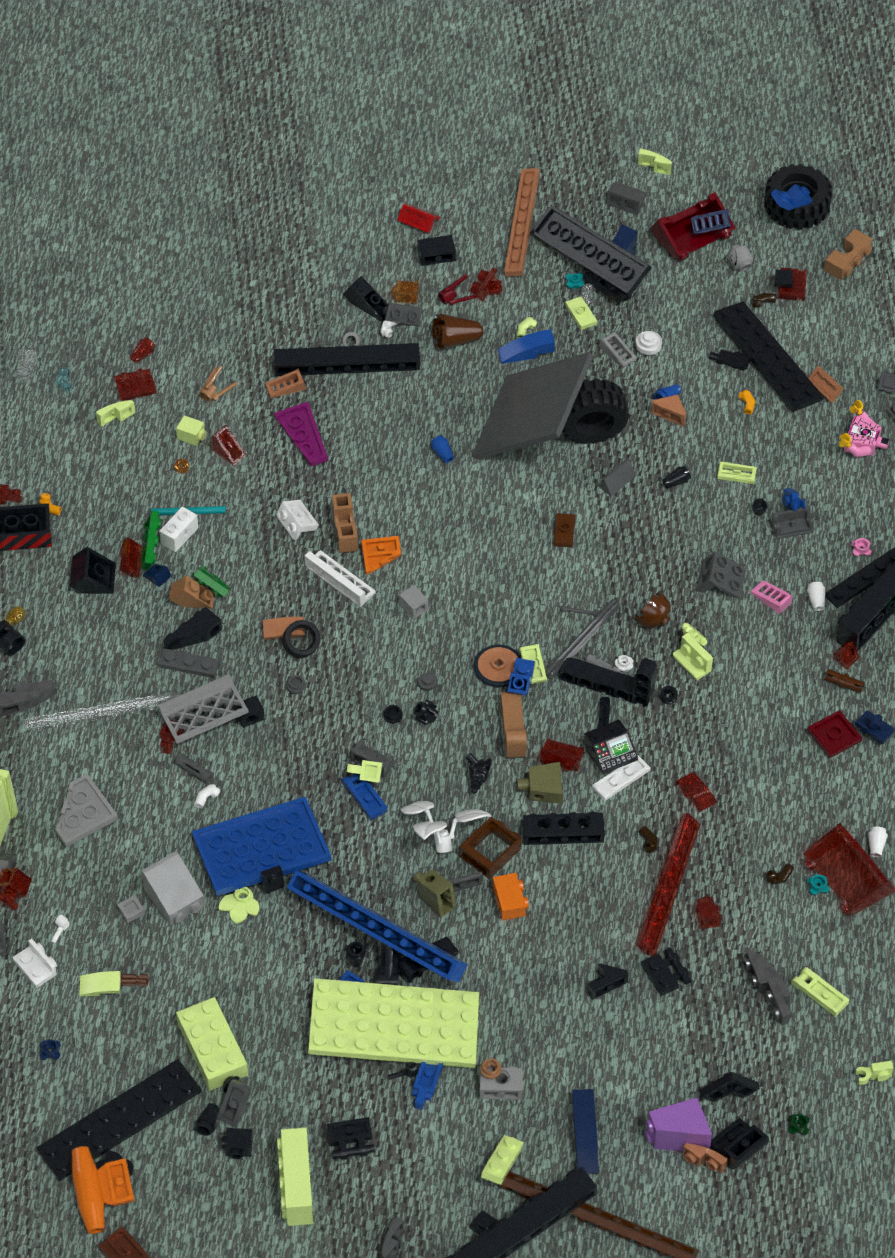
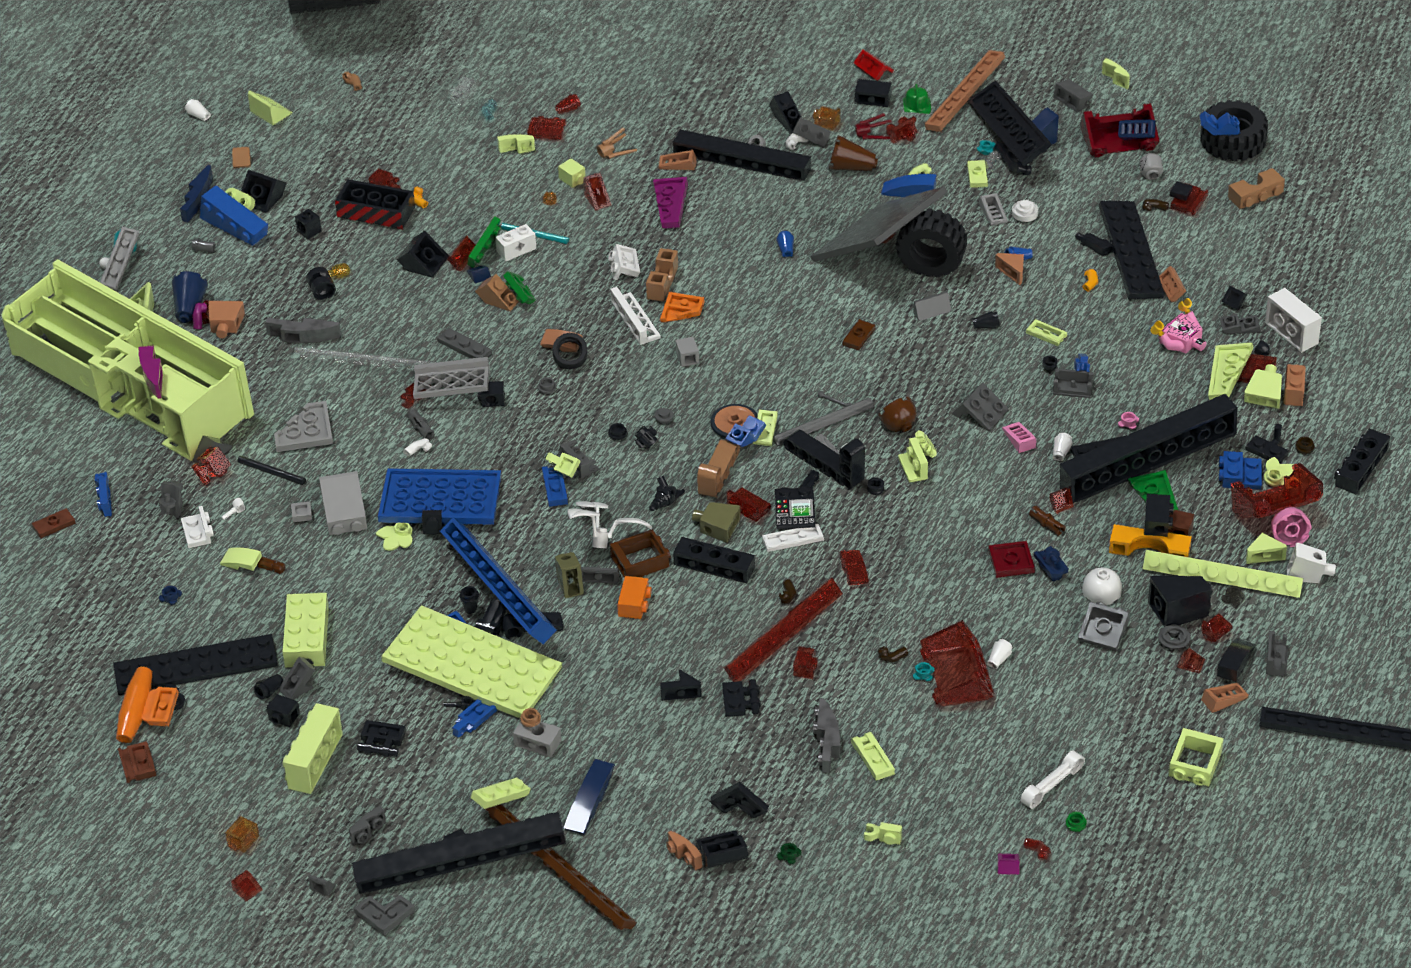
camera: 25 degrees right, 10 degrees down
(72, 870) = (271, 470): none -> black bar
(196, 630) = (484, 321): black slope -> none
(481, 247) = (917, 100): none -> green piece
(678, 1124) = (670, 812): medium lavender slope -> none

